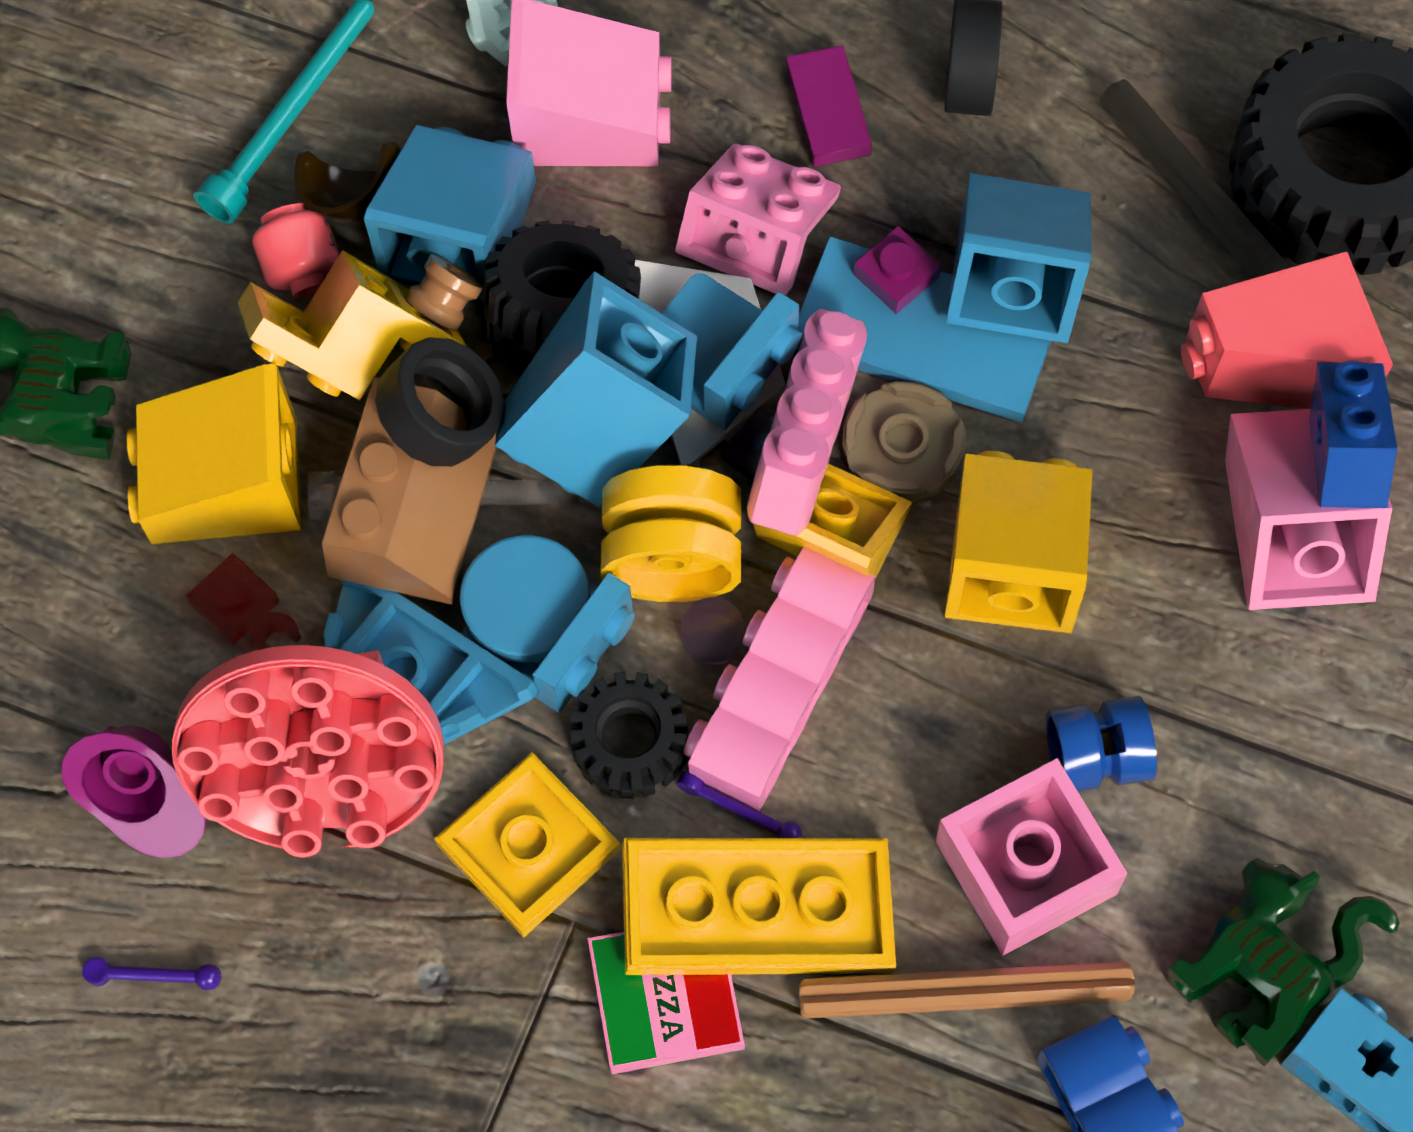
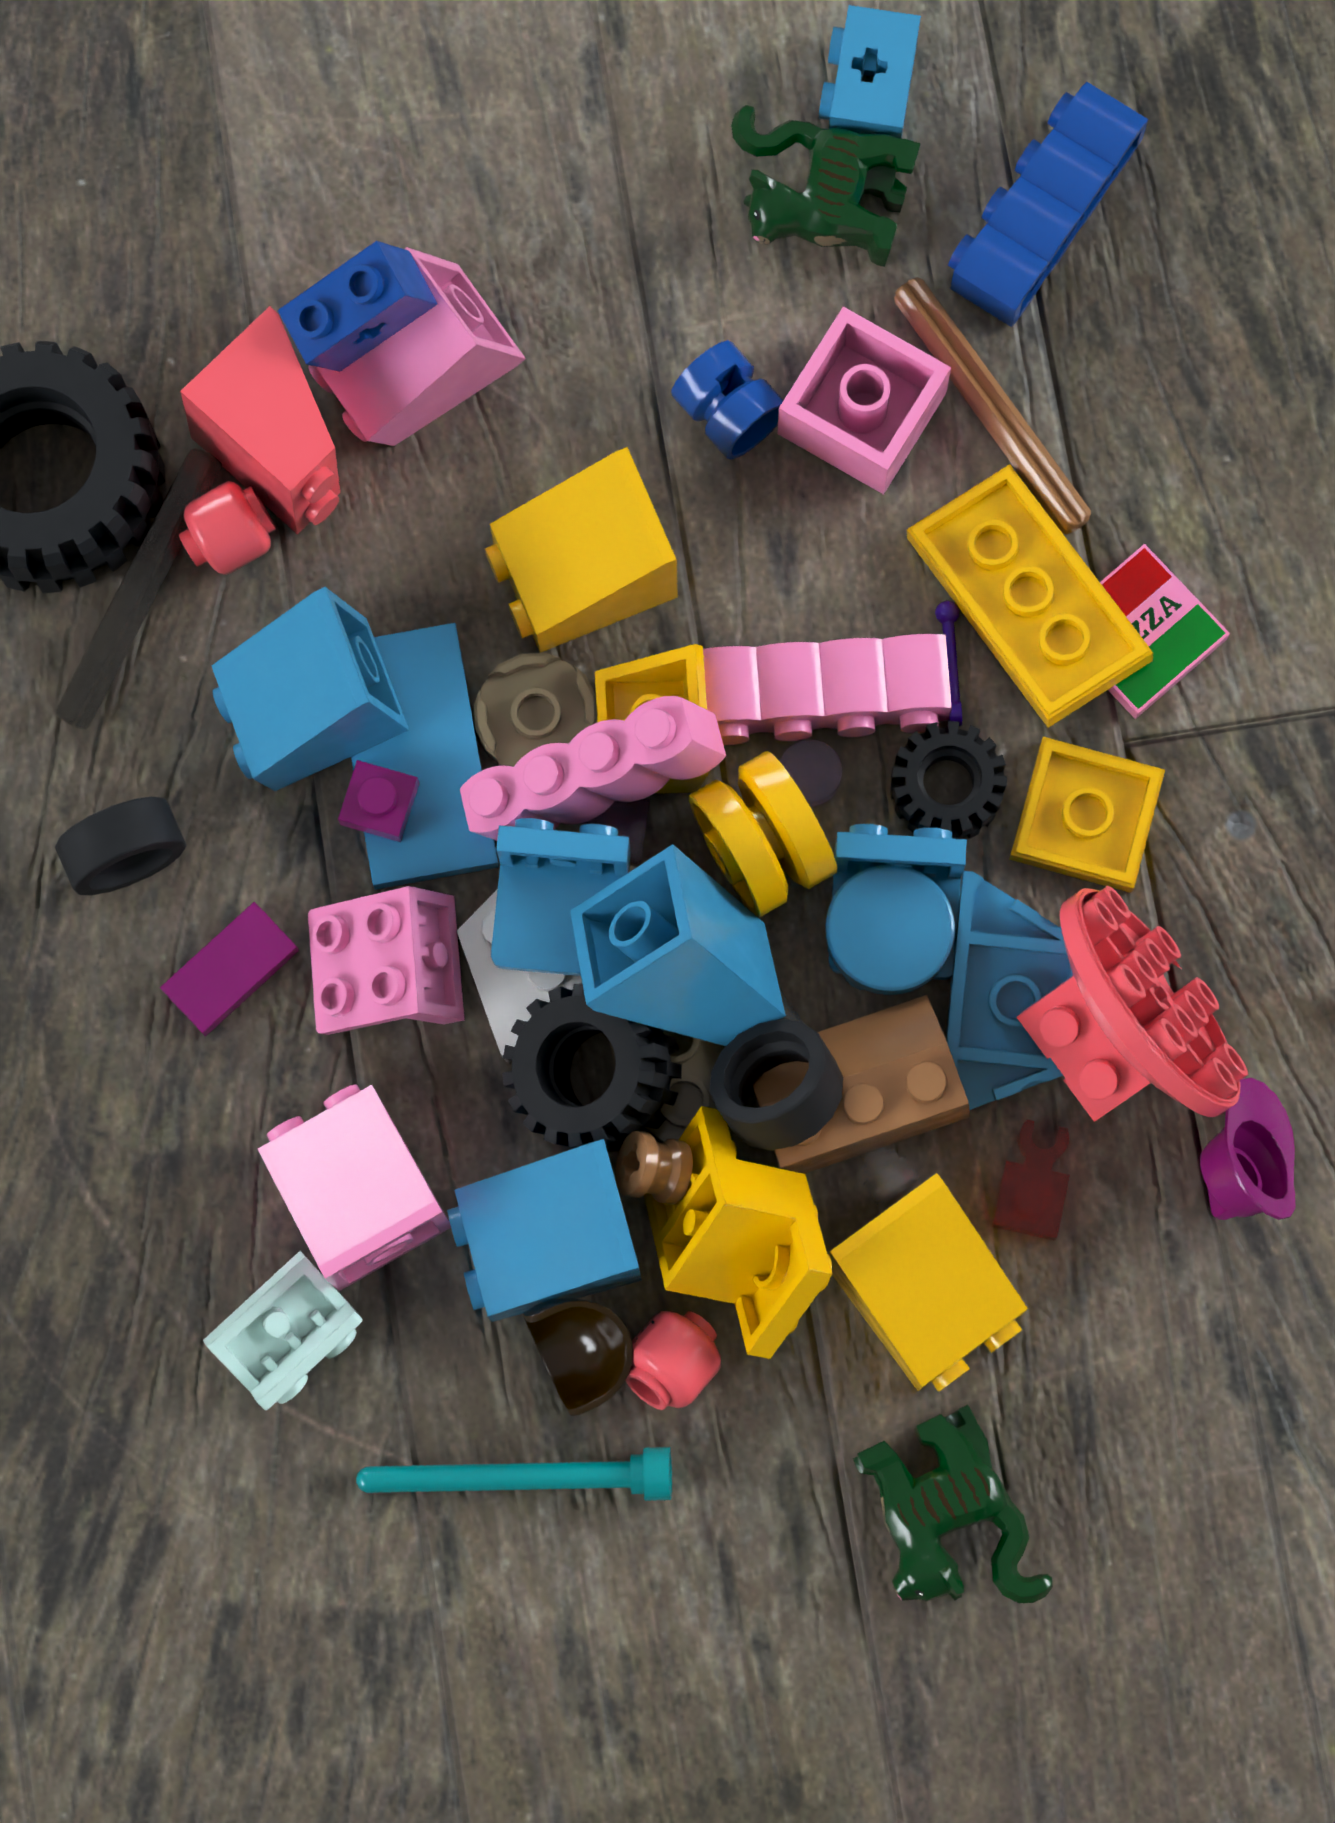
camera: 120 degrees left, 10 degrees up
(1209, 263) = (227, 528): none -> coral head

